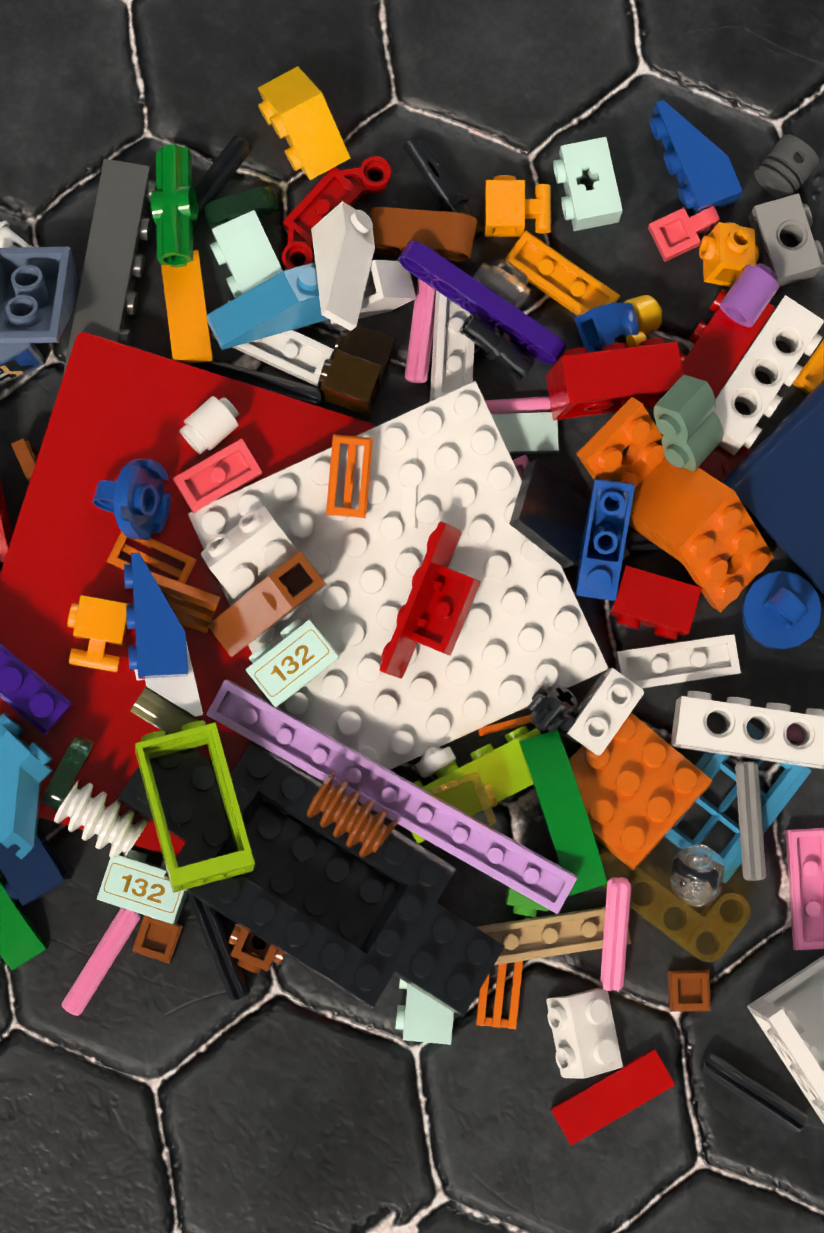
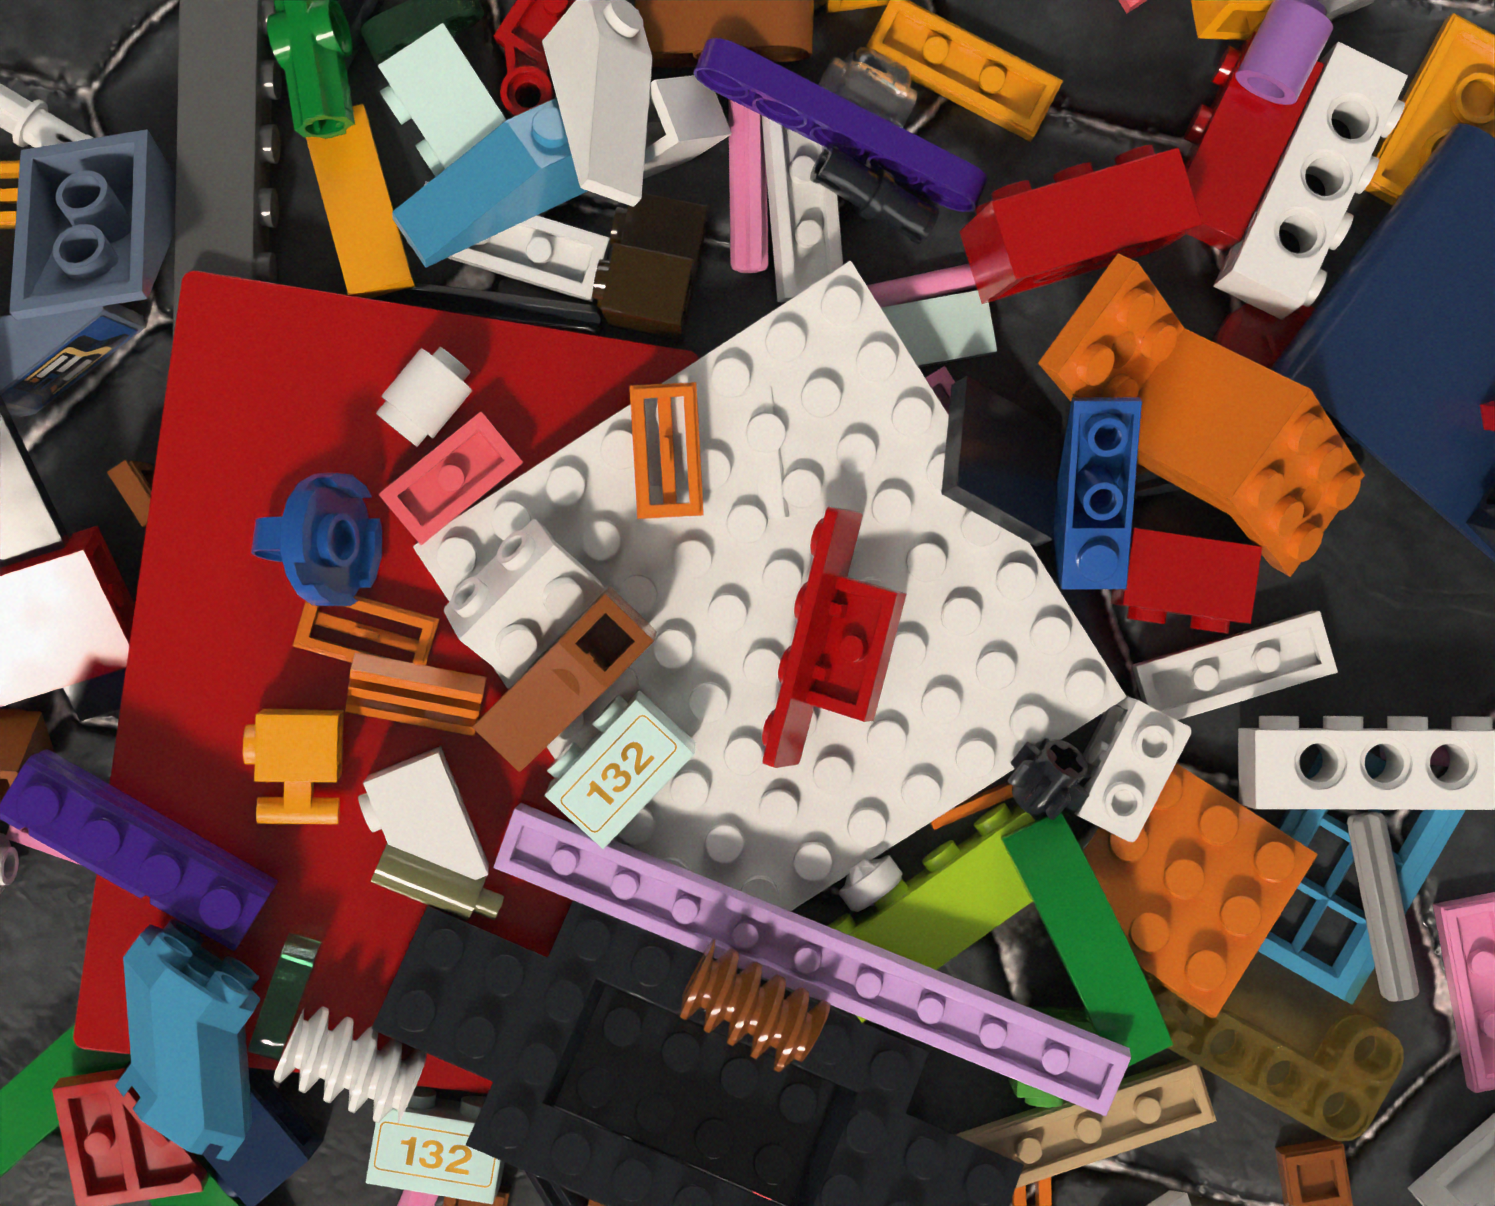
camera: 10 degrees left, 5 degrees up
(159, 635) = (392, 760): blue slope -> none
(210, 870) = (533, 1138): lime window -> none
(483, 792) = (958, 932): clear yellow bracket -> none
(614, 320) = (1086, 119): blue piece -> none
(615, 933) = (1194, 1116): bright pink axle -> none
(688, 422) = (1215, 282): sand green brick -> none
(697, 876) = (1307, 1007): clear head -> none
(781, 610) = (1386, 559): blue tile -> none

